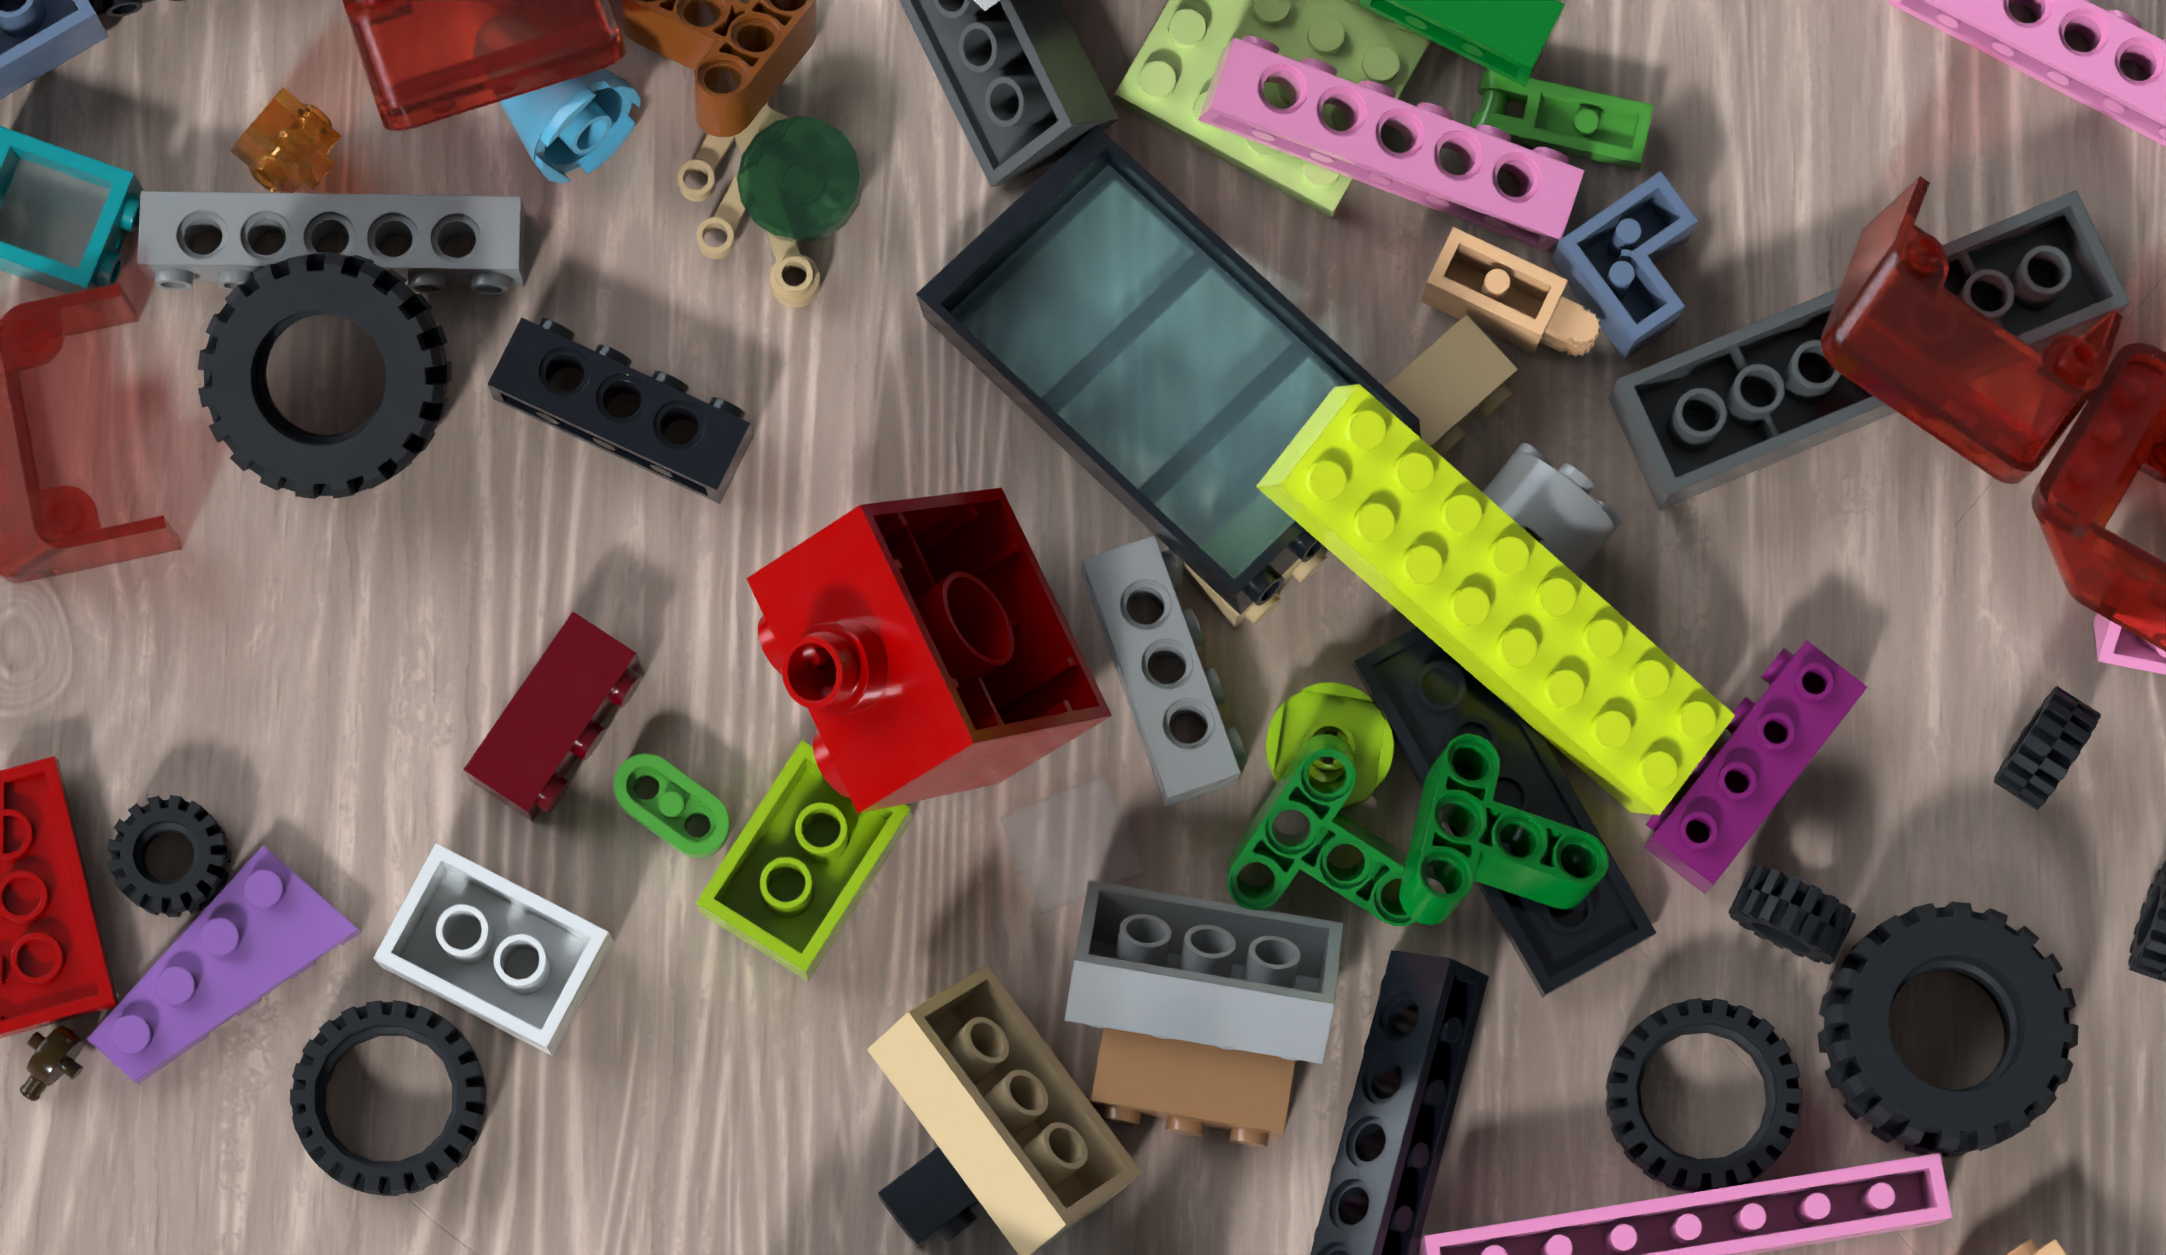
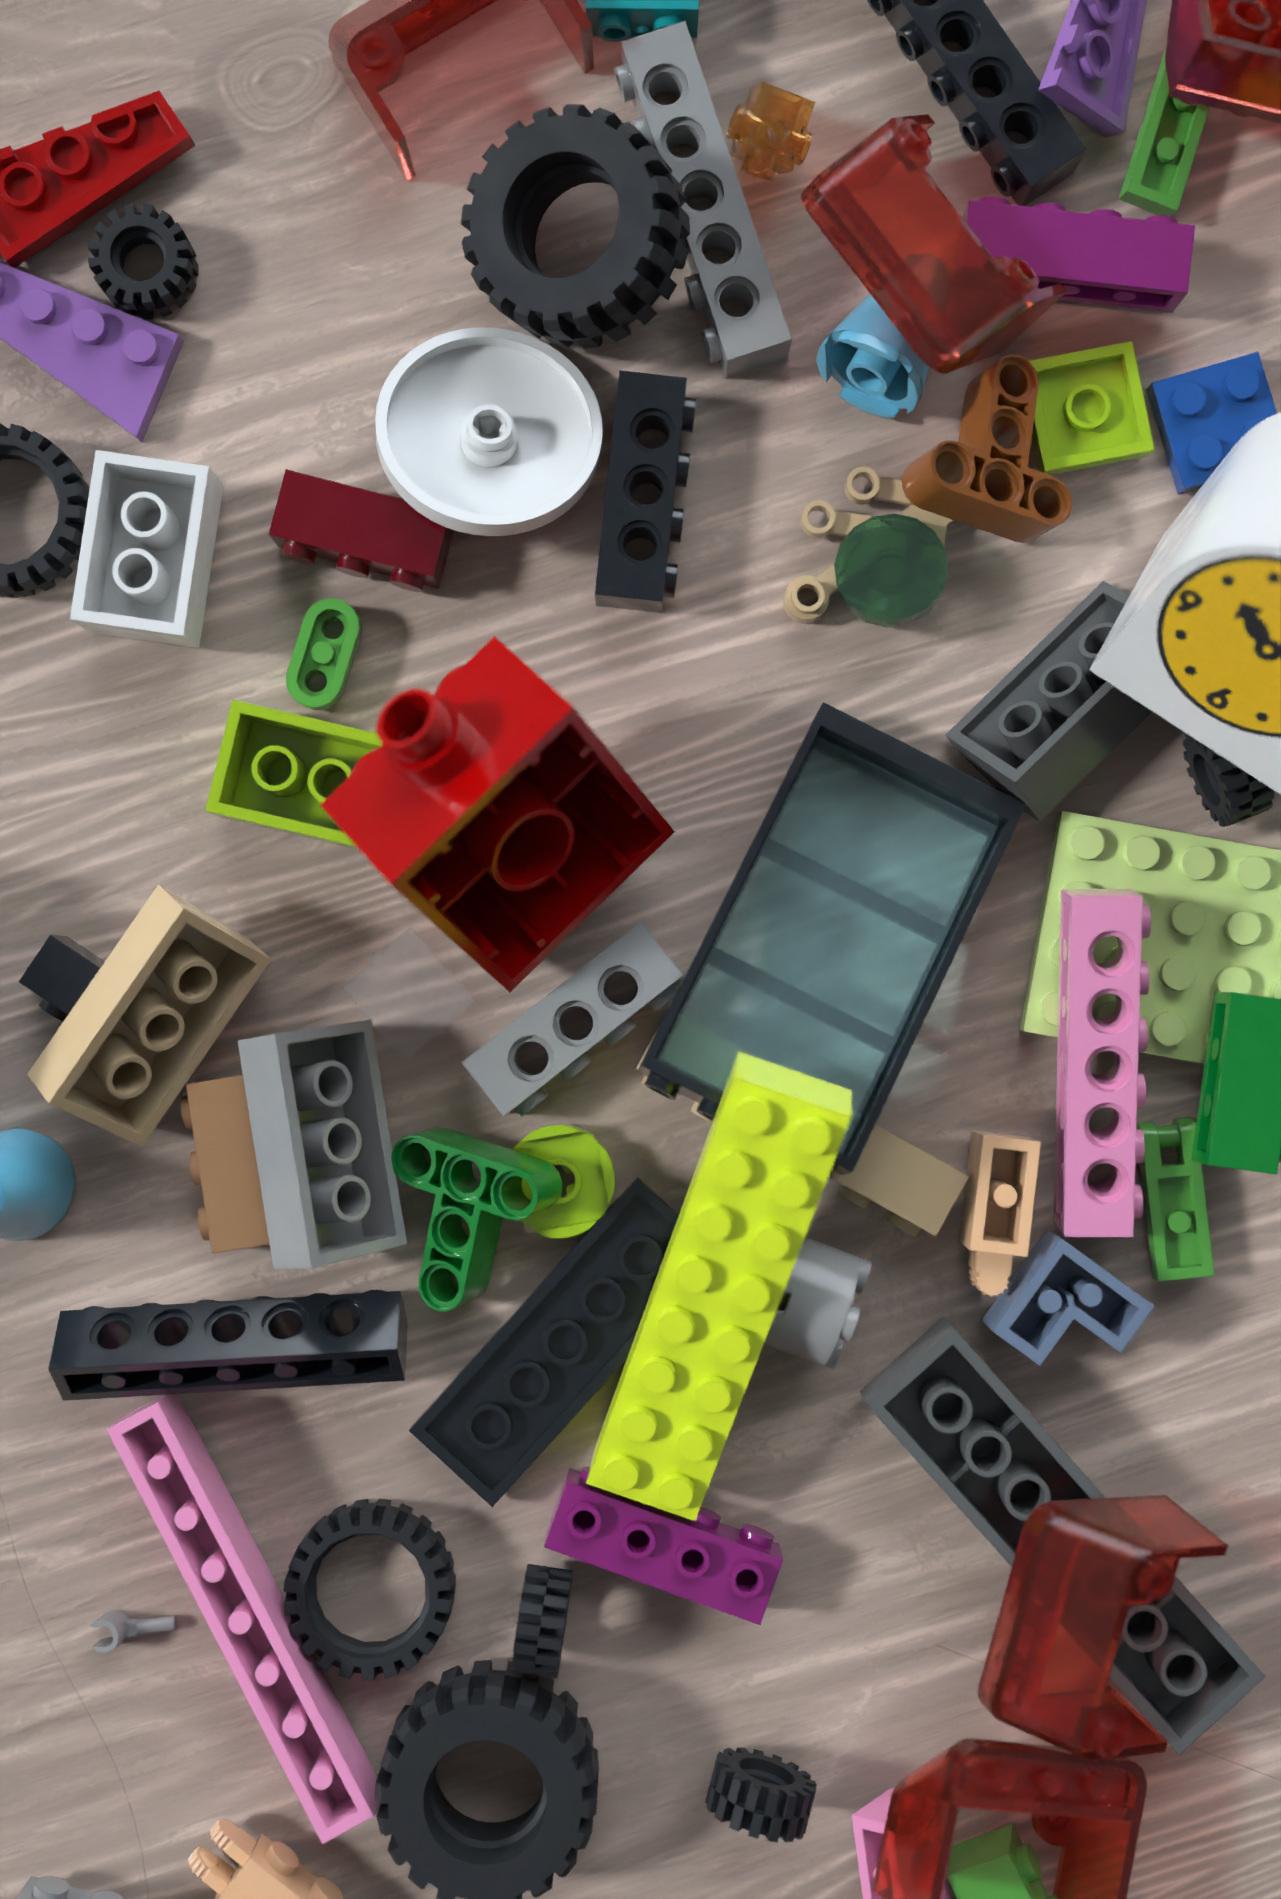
camera: 80 degrees right, 10 degrees up
(499, 543) = (488, 431): none -> white dish
(1478, 849) = (507, 1341): green beam -> none

